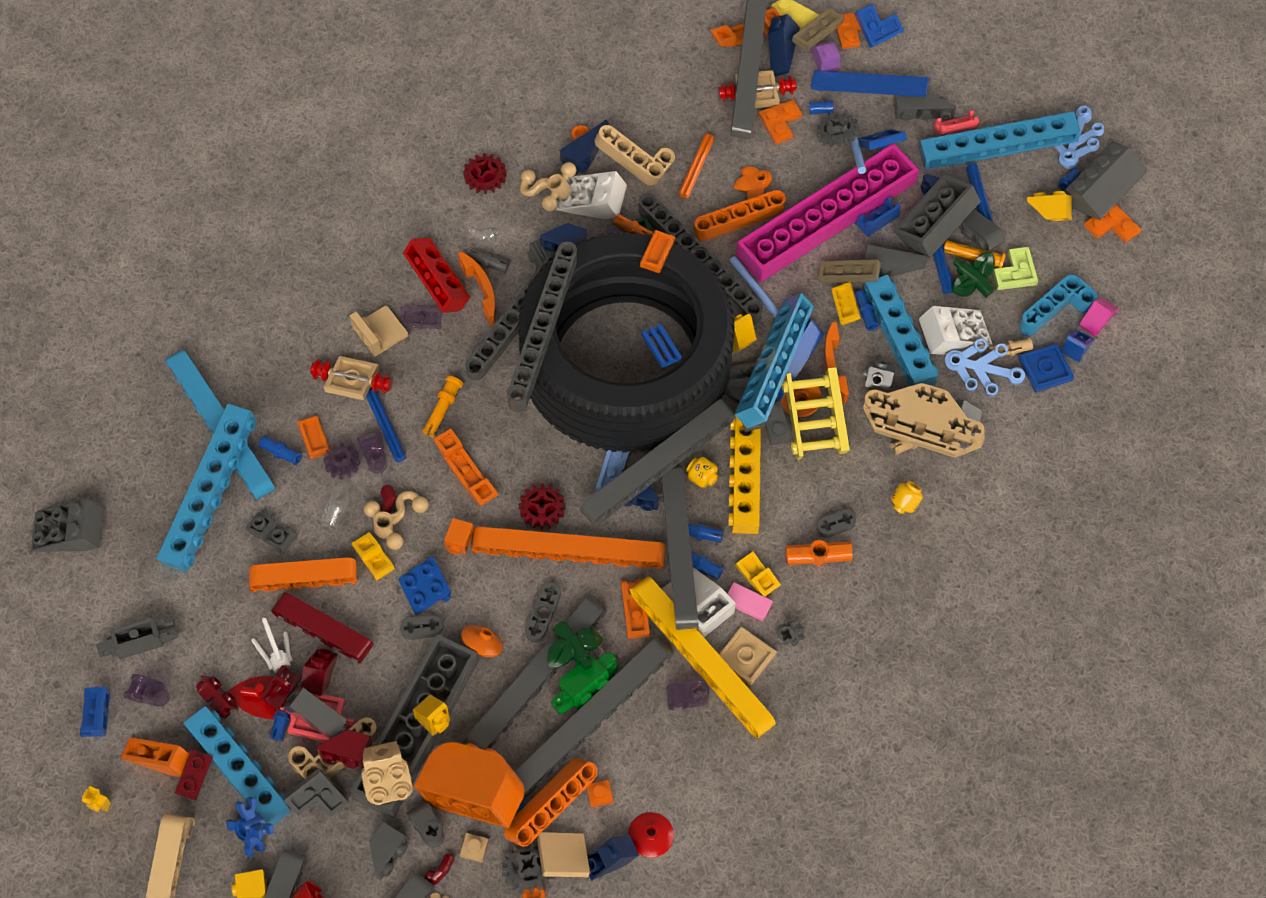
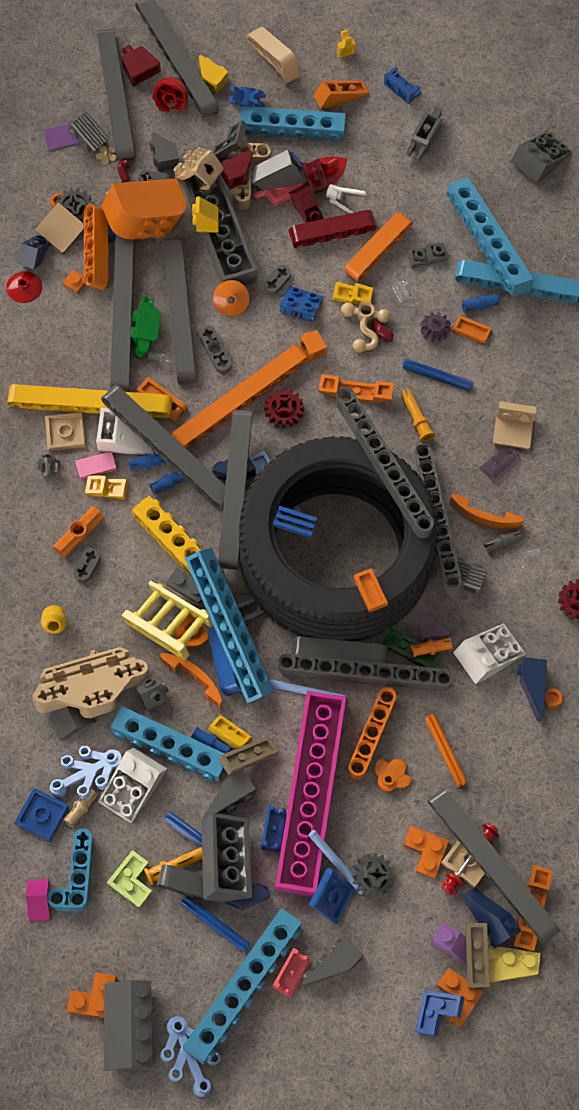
camera: 135 degrees right, 5 degrees up
(143, 691) = (387, 117): clear purple piece -> none
(193, 775) = (308, 97): dark red hinge -> none
(212, 689) = (347, 149): dark red hinge -> none
(351, 377) = (491, 380): tan plate -> none
(373, 450) = (425, 350): clear purple piece -> none
(436, 275) = (513, 485): red brick -> none
(556, 183) = (519, 628): tan piece -> none
(565, 233) = (452, 569): dark blue slope -> none
(572, 646) = (170, 334): dark green plant -> none
(633, 152) = (495, 706): tan beam -> none
(685, 695) = (77, 373): clear purple piece -> none
(702, 472) = (205, 518): yellow head -> none
(743, 333) = (277, 634): yellow slope -> none
(821, 107) = (407, 890): blue pin -> none
(870, 83) = (388, 942): blue tile -> none
(974, 276) = (157, 841): dark green plant -> none
(1052, 207) = (150, 959): yellow slope -> none
(1065, 181) = (159, 1002): blue pin -> none
(1077, 345) = (33, 856): blue slope -> none

